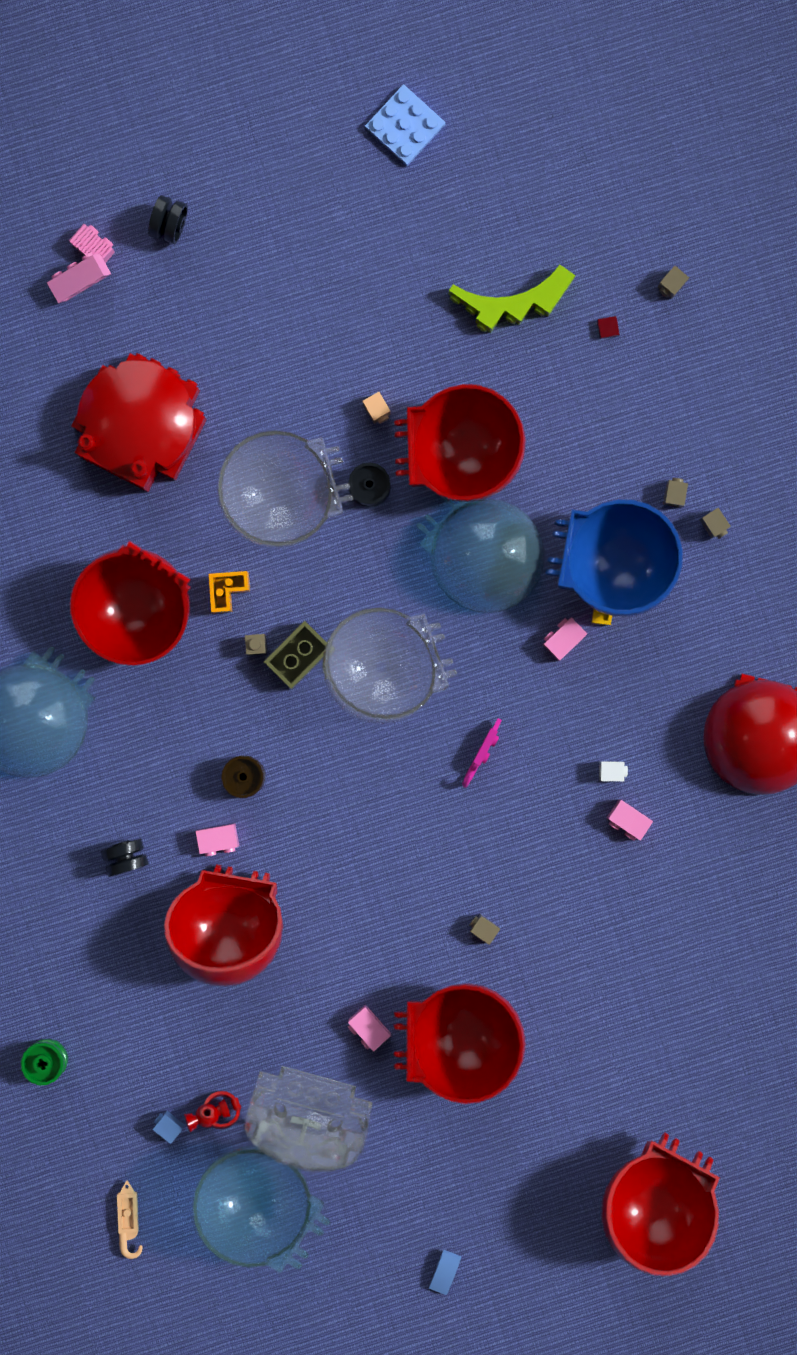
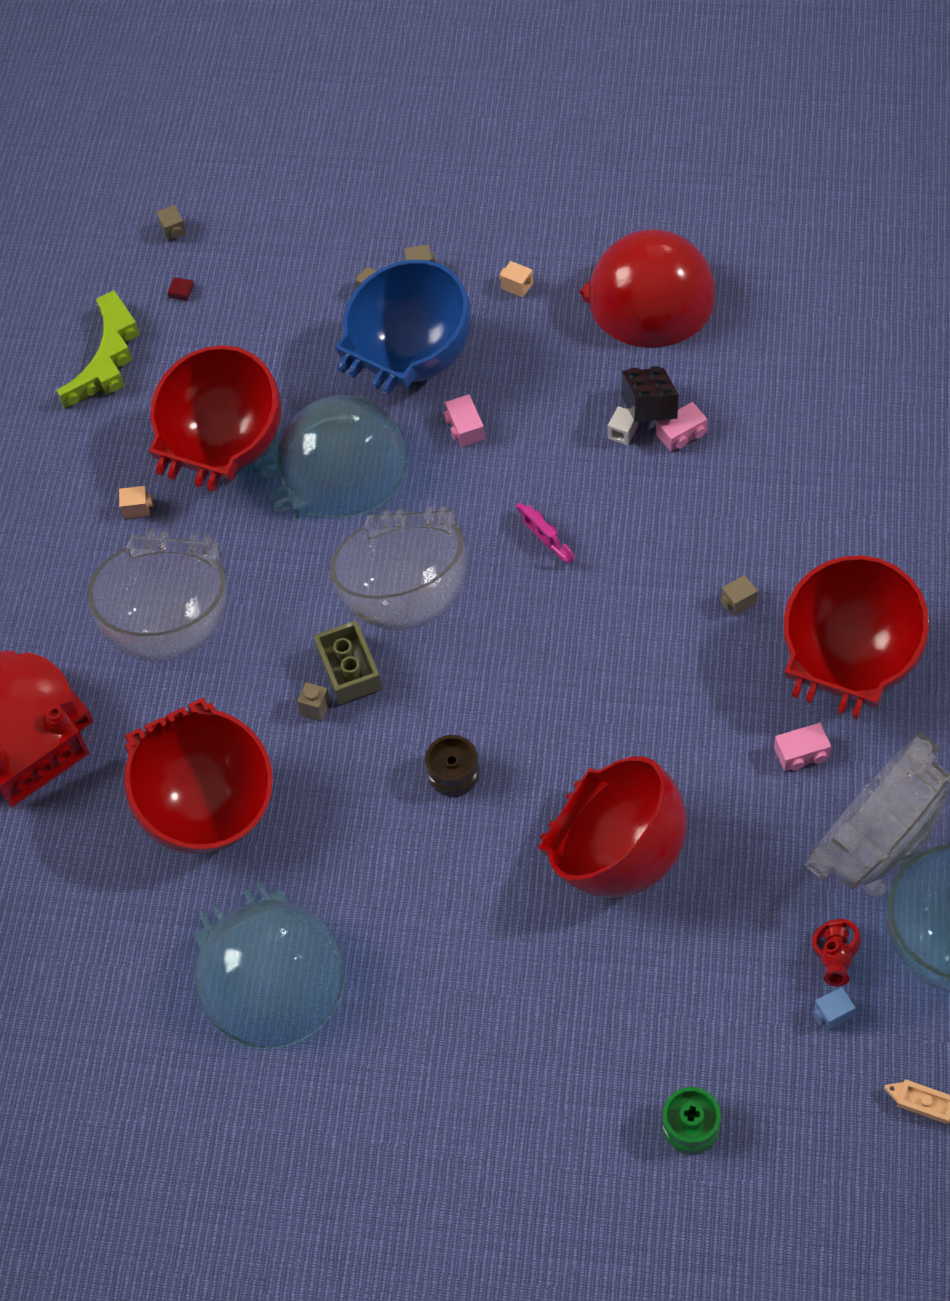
camera: 55 degrees left, 30 degrees down
(124, 857) = (479, 922): black wheel -> none
(217, 839) = (510, 823): bright pink piece -> none
(223, 585) = (236, 701): light orange brick -> none
(369, 496) = (210, 520): black wheel -> none
(601, 618) = (457, 382): yellow plate -> none
(642, 785) = (649, 394): none -> black brick
(730, 614) = (516, 279): none -> light nougat brick

